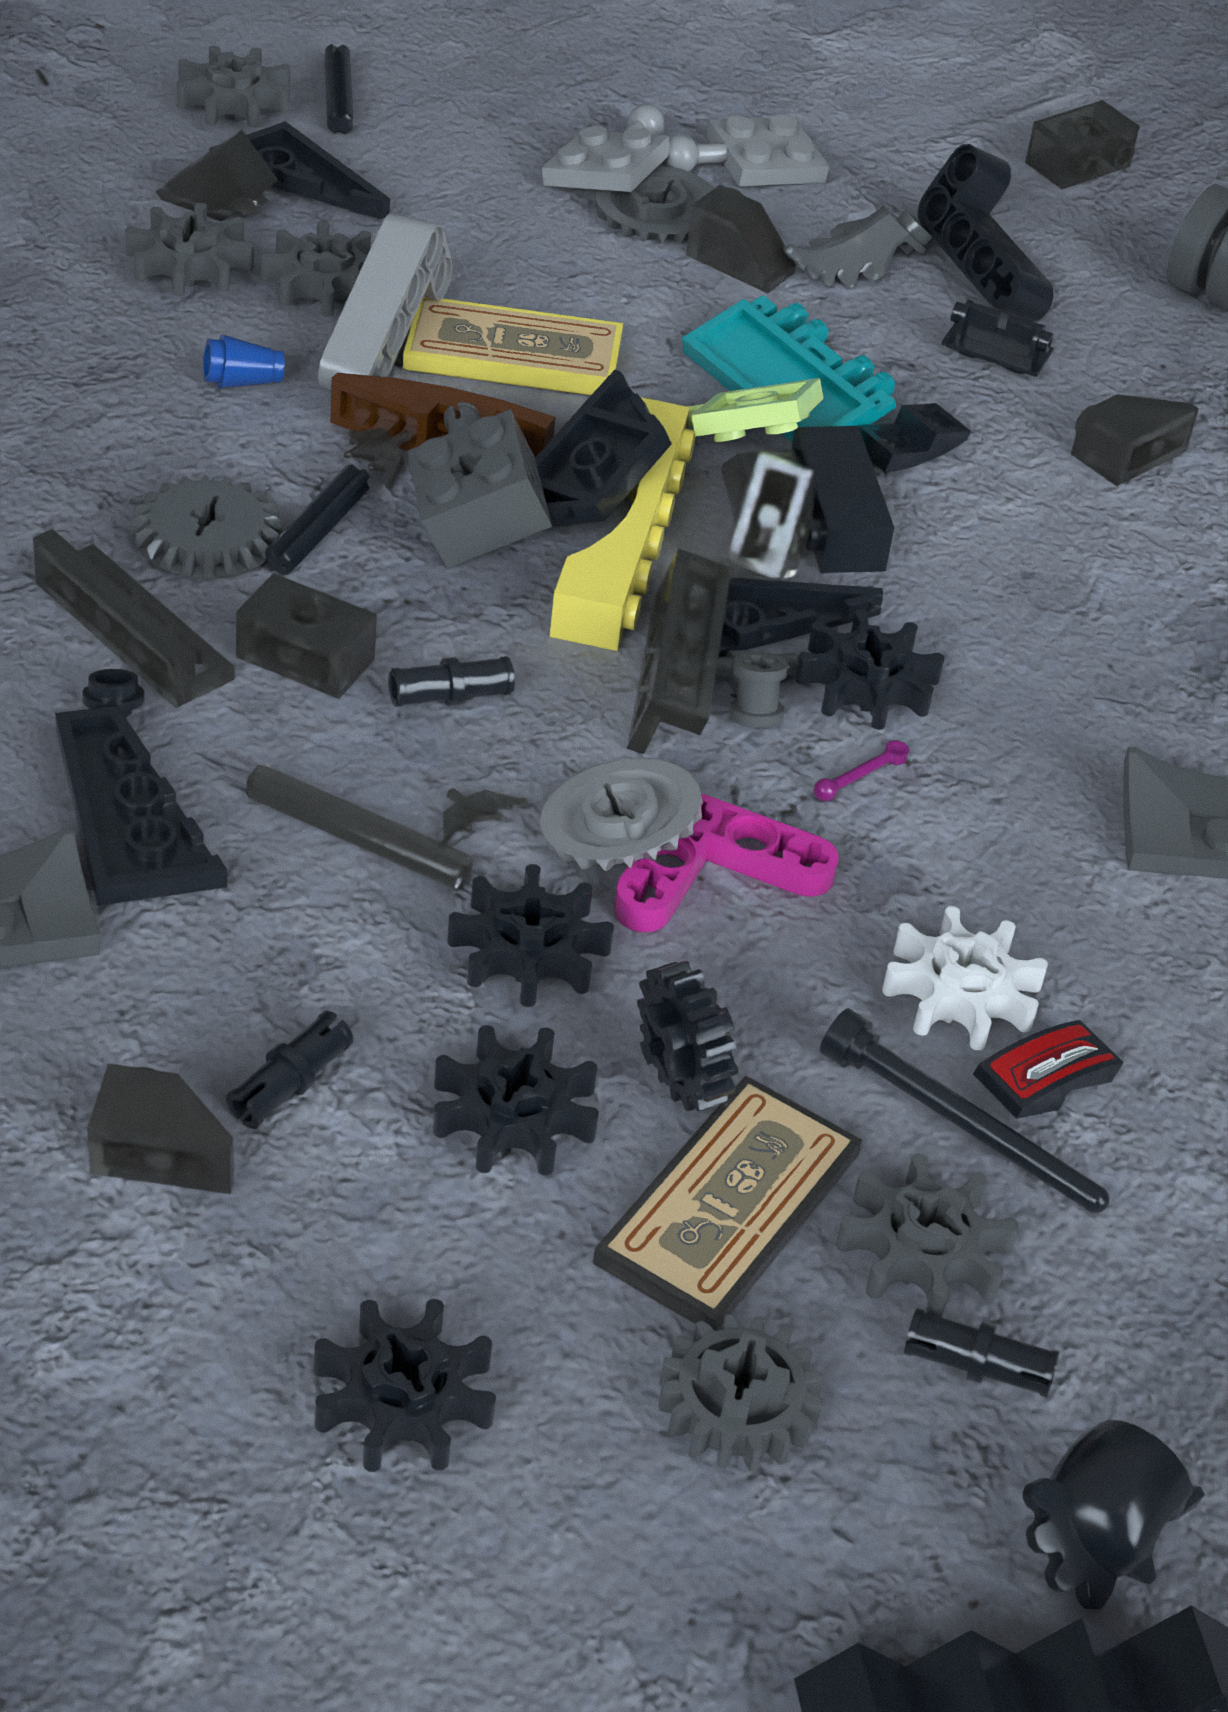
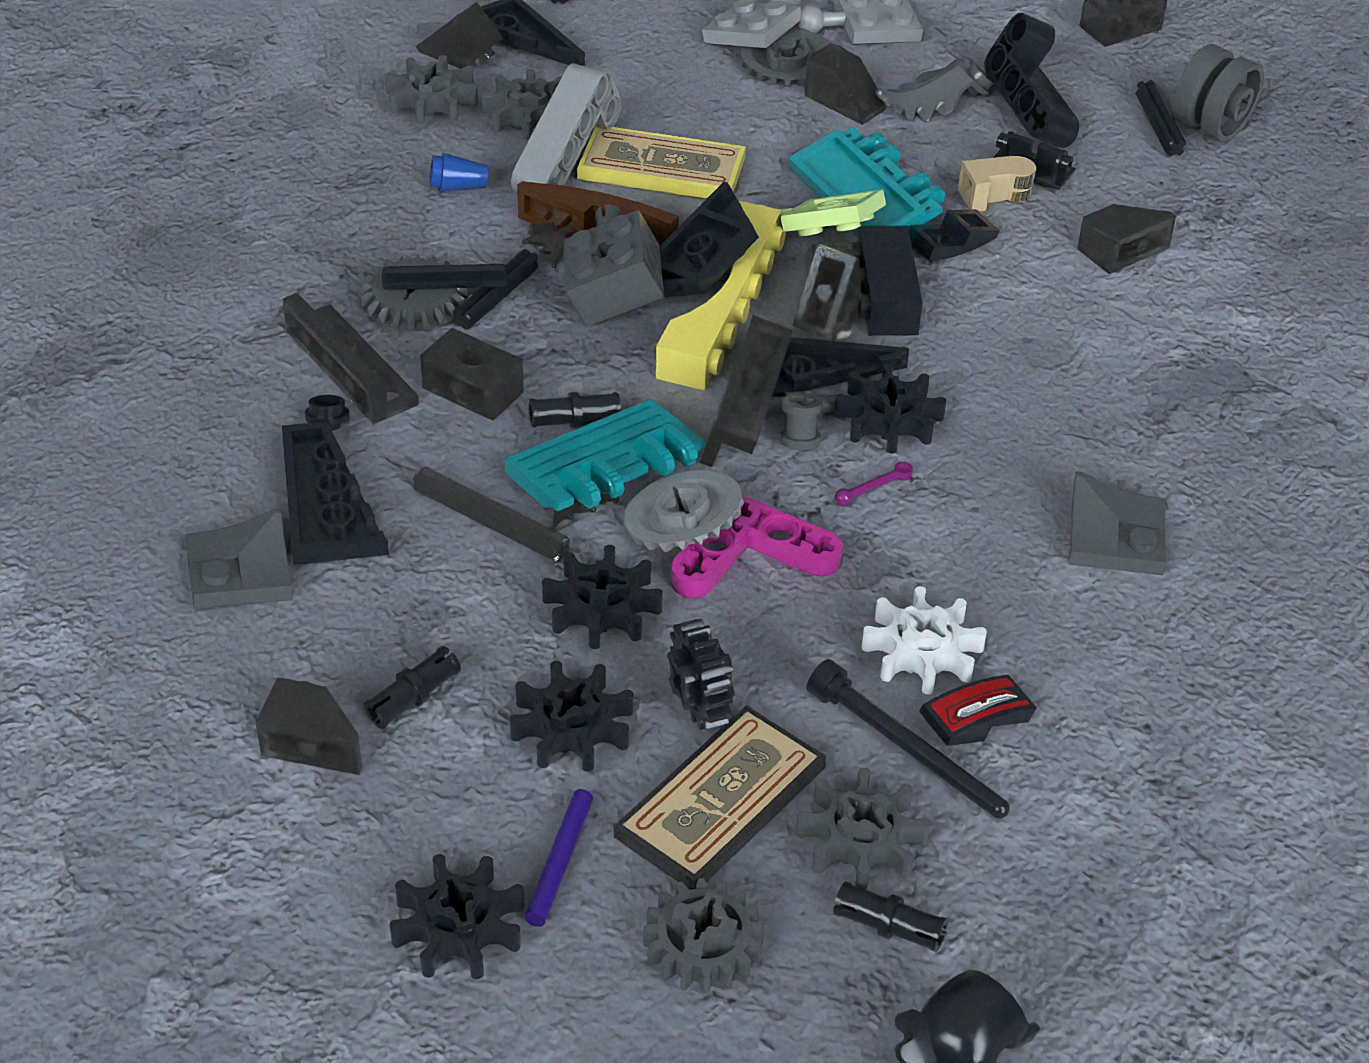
camera: 10 degrees right, 0 degrees up
(250, 503) = (444, 276): none -> black axle
(502, 745) = (604, 456): none -> teal hinge
(525, 1296) = (558, 858): none -> dark purple bar
(956, 365) = (996, 180): none -> tan leg
(1150, 281) = (1160, 118): none -> black axle

